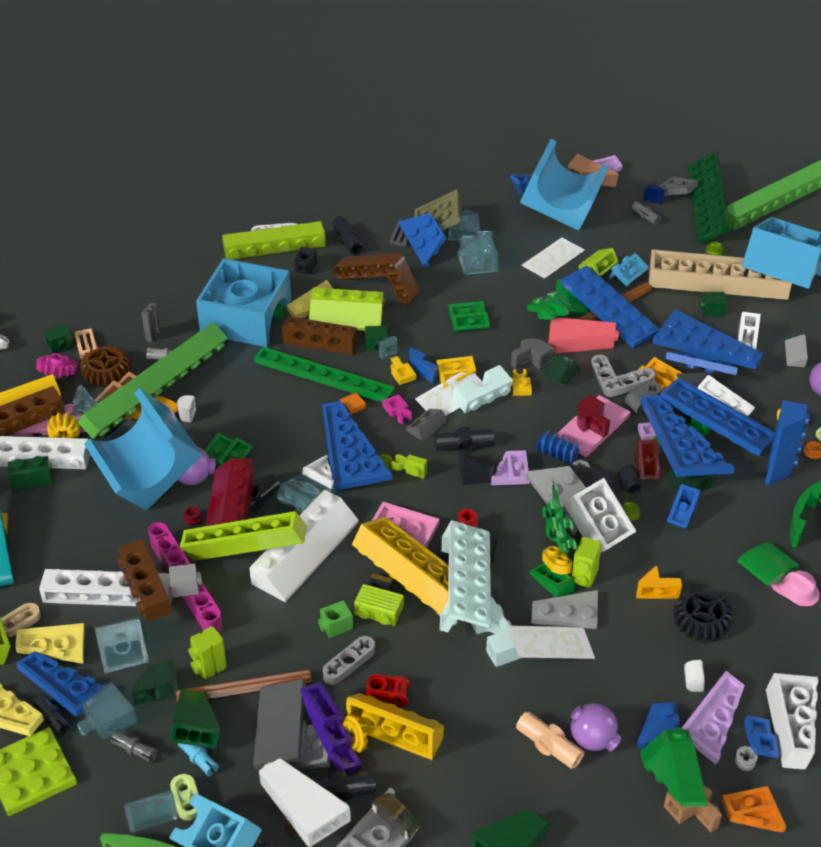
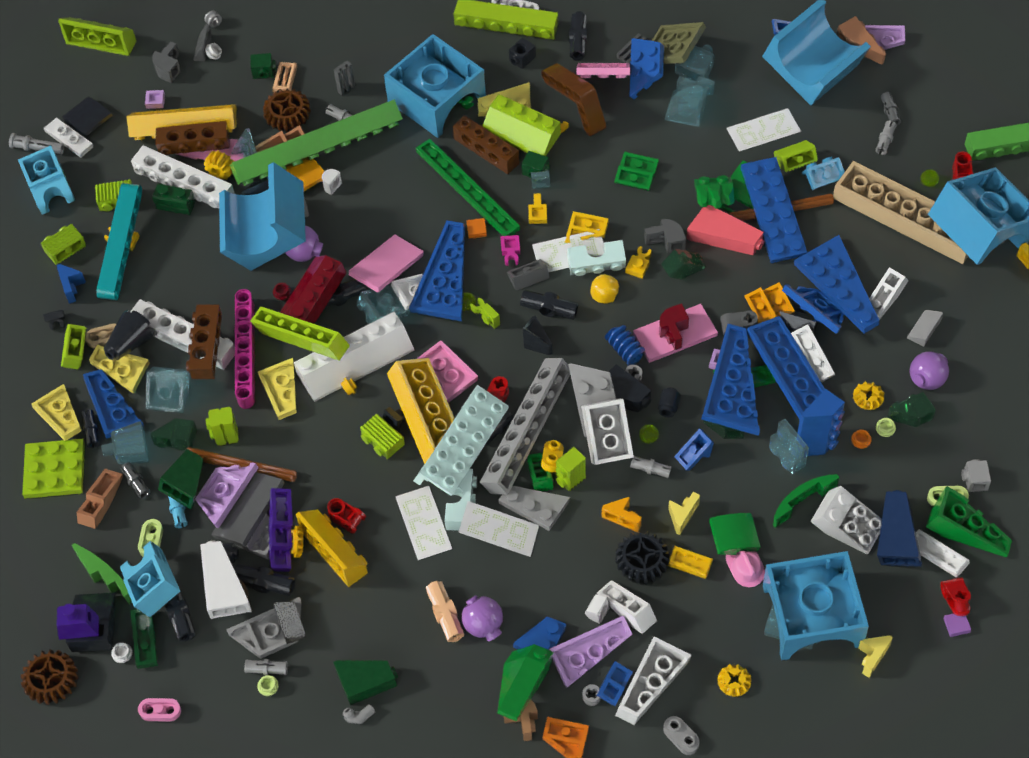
camera: 30 degrees right, 15 degrees up
(52, 603) = (129, 333): none -> black cone
(56, 365) = (245, 95): dark pink gear -> none
(102, 780) = (99, 498): none -> nougat slope
(151, 811) = (119, 539): clear light blue slope -> none
(184, 580) = (235, 354): light grey brick -> none
(224, 449) = (341, 239): green slope -> none
(242, 599) = (280, 387): none -> light yellow wing
(243, 717) = (223, 490): none -> lavender wing
(286, 456) = (386, 263): none -> bright pink tile
(315, 572) = (349, 386): none -> yellow plate
(335, 619) = (346, 441): bright green brick -> none
(351, 651) = (320, 485): light grey beam -> none
(398, 246) = (603, 70): none -> bright pink plate
(422, 367) = (559, 211): blue slope -> none
(469, 669) = (423, 522): none -> white sticker
(505, 412) = (604, 288): none -> yellow hair
(512, 469) = (573, 349): lavender wing -> none
(516, 546) = (526, 426): none -> light grey brick
(557, 522) = (562, 429): green animal -> none
(614, 381) = (727, 295): light grey beam -> none
(647, 459) = (696, 389): clear red slope -> none
(652, 537) = (650, 466): none -> light grey pin
(654, 194) = (913, 88): clear blue slope -> none
(657, 232) = (885, 137): none -> light grey pin
(678, 186) = (941, 87): dark grey wing -> none
(709, 198) = (965, 113): dark green plate -> none
(709, 564) = (681, 514): none -> light yellow slope
(713, 304) = (880, 243): dark green brick -> none
(735, 660) = (634, 609): none -> white slope
(737, 236) = (959, 169): none -> red piece
(749, 602) = (690, 562): none -> yellow plate
(765, 473) = (789, 447): none -> clear light blue plate

